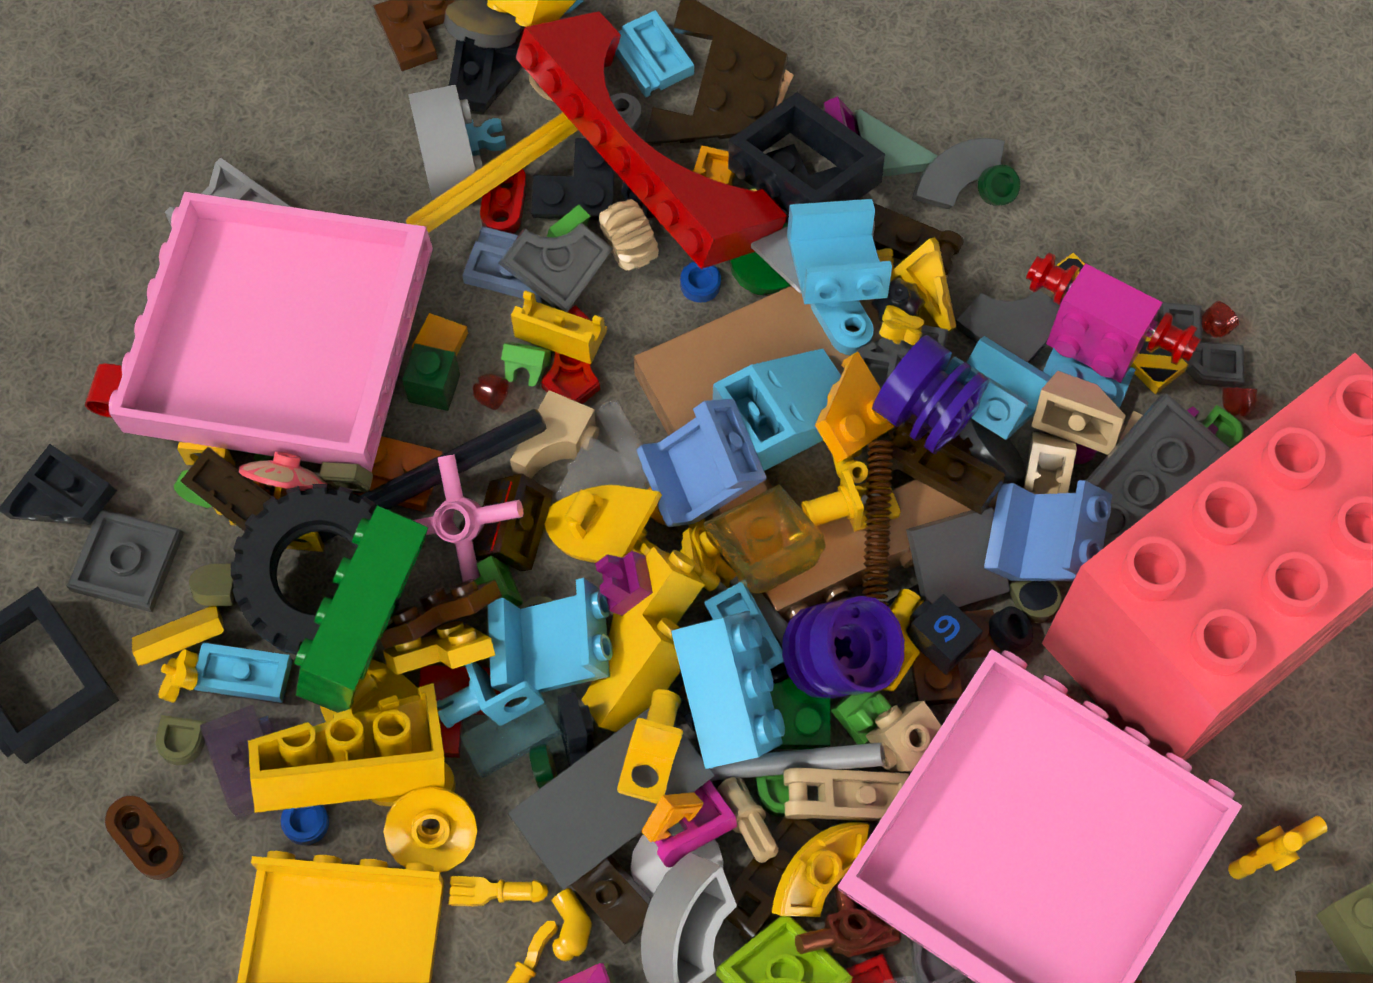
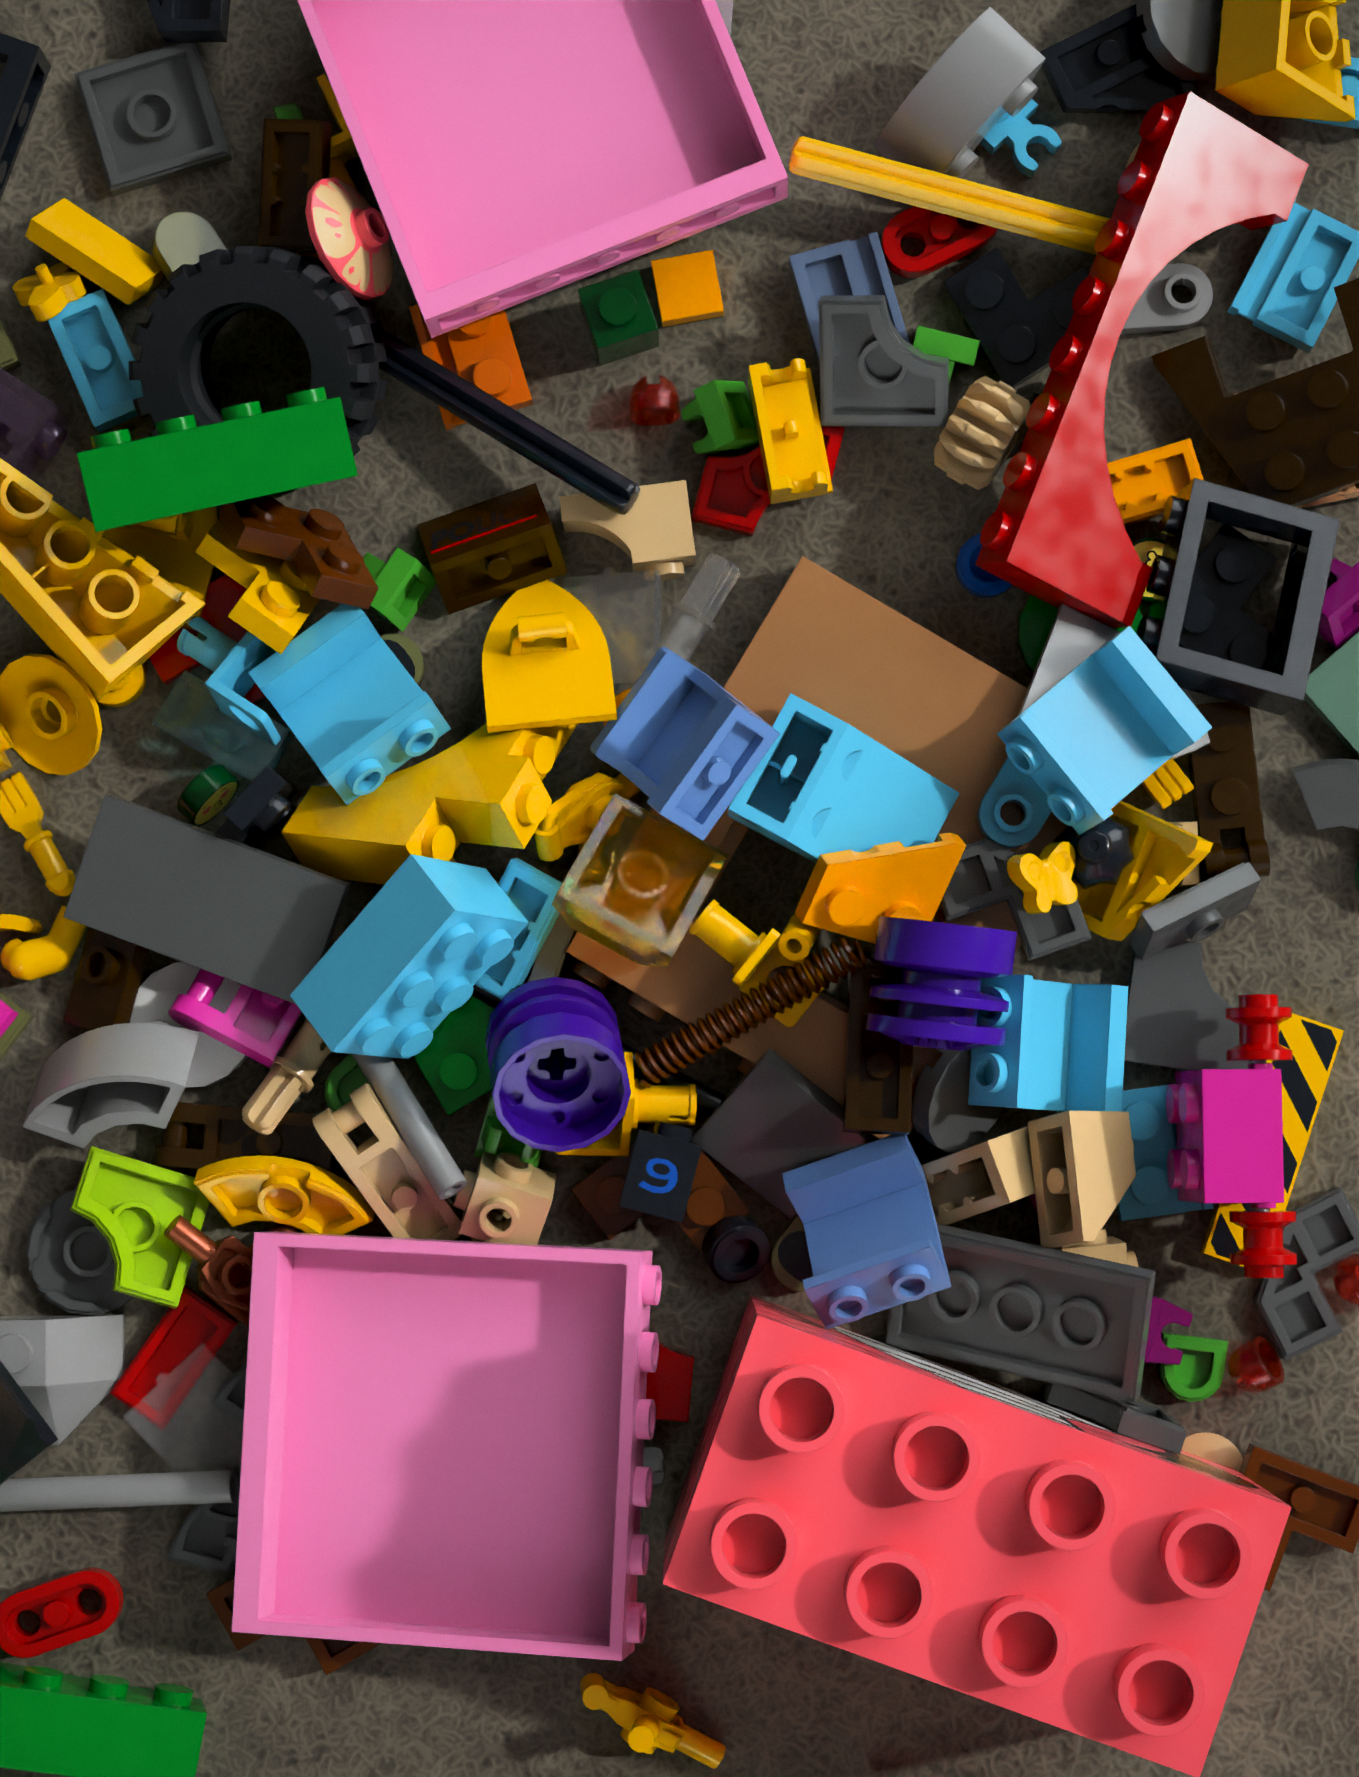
camera: 60 degrees right, 20 degrees up
(346, 475) = (406, 311): olive tile -> none
(474, 515) = (445, 485): bright pink bar -> none
(624, 581) = (465, 750): magenta tile -> none
(653, 744) = (280, 916): yellow bracket -> none
(669, 812) = (224, 982): light orange tile -> none
(963, 281) = (1195, 911): none -> dark grey plate

